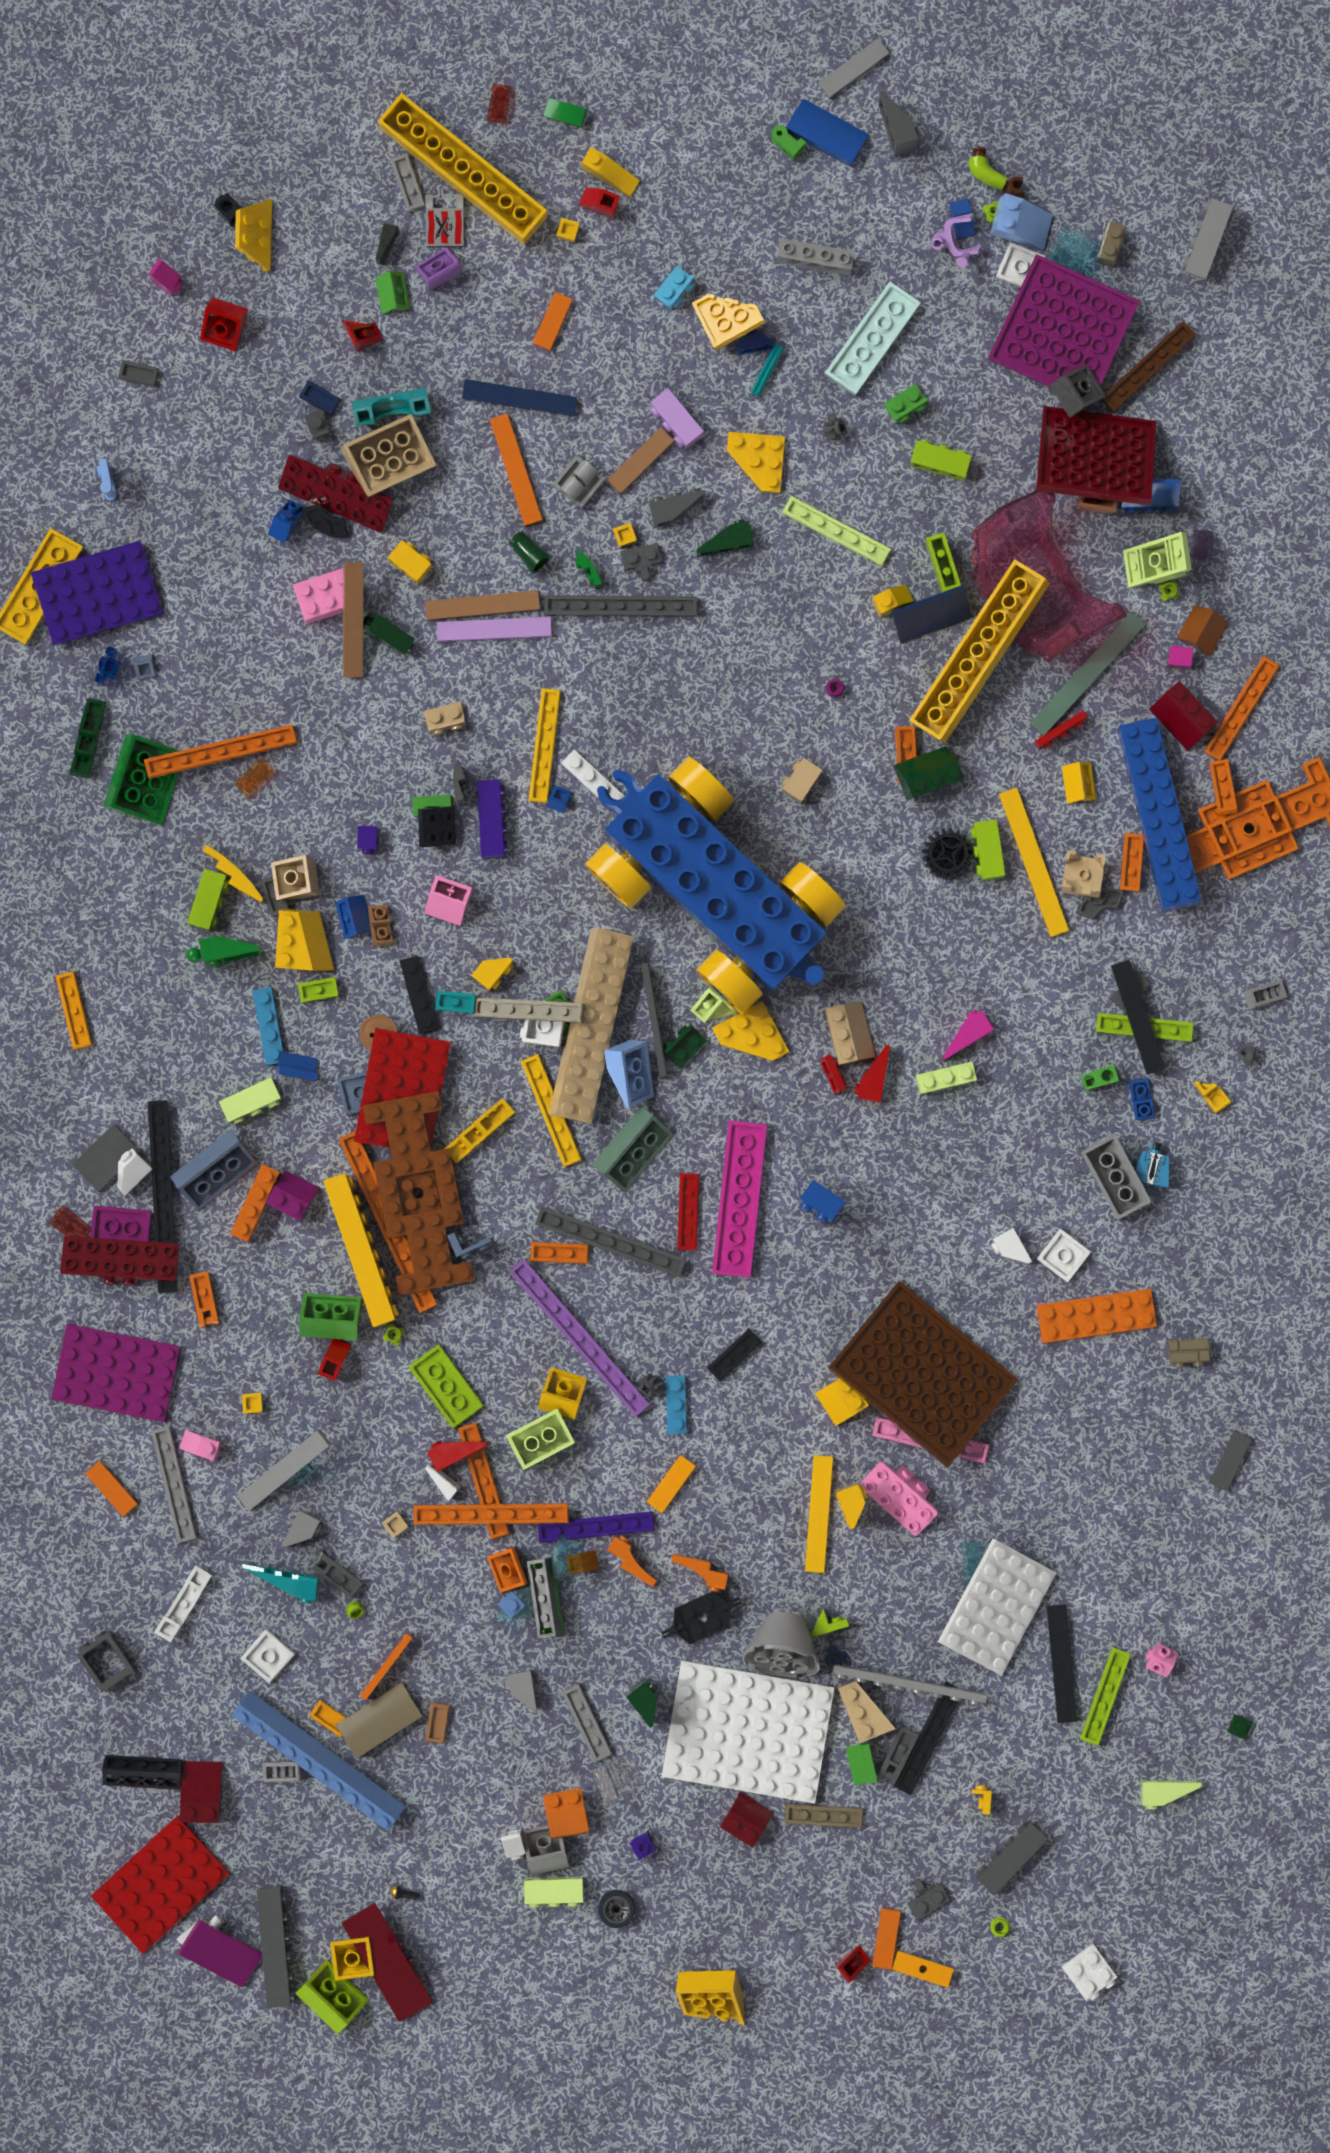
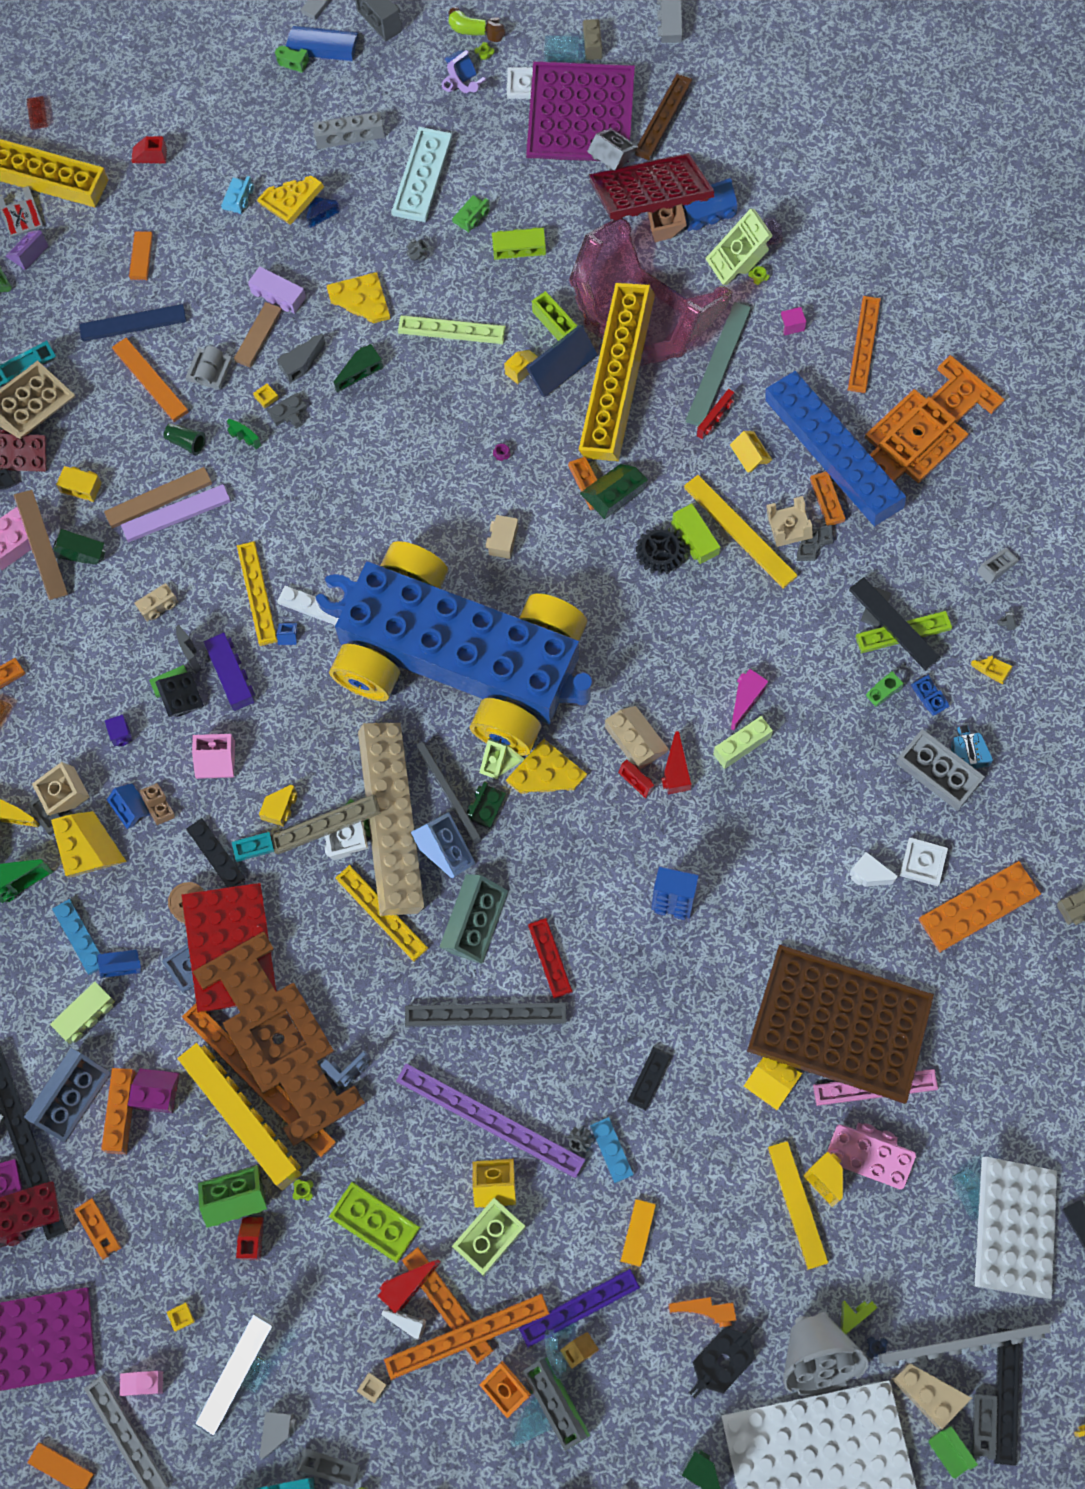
camera: 20 degrees left, 15 degrees down
(318, 990) = (116, 884): lime plate -> none
(479, 1130) = (319, 957): yellow slope -> none
(511, 1604) = (523, 1425): medium blue plate -> none
(559, 1252) = (439, 1045): orange tile -> none
(565, 112) = (95, 98): green slope -> none
(568, 230) = (129, 182): yellow plate -> none
(609, 172) = (140, 125): yellow slope -> none
(620, 605) = (282, 453): dark grey plate -> none
(621, 1548) = (614, 1320): orange slope -> none
(739, 1199) = (594, 927): dark pink plate -> none
(767, 370) = (341, 228): teal axle -> none
(1021, 222) = (509, 47): light blue slope -> none
(1183, 715) = (818, 364): dark red slope -> none
(1202, 629) = (802, 291): dark orange slope -> none
(1223, 787) = (879, 407): orange plate -> none

